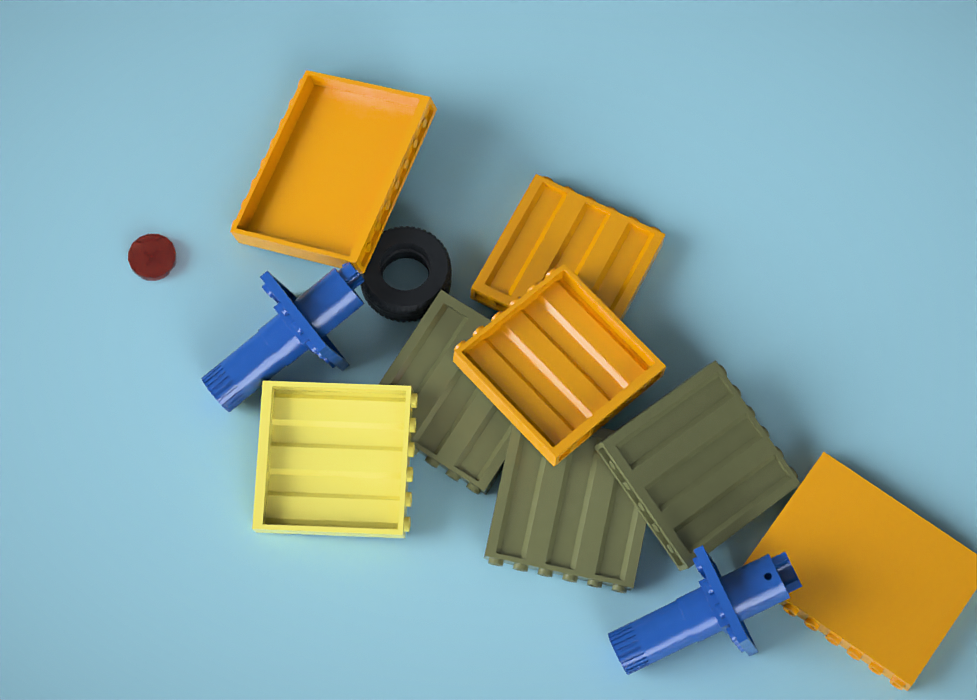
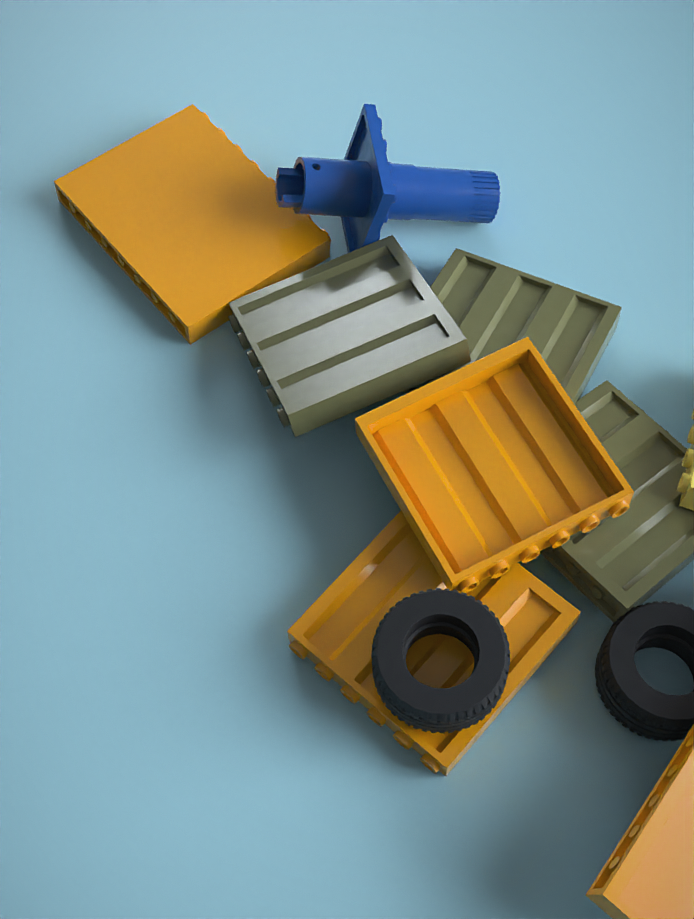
camera: 165 degrees left, 10 degrees down
(566, 193) = (450, 615): none -> black tyre

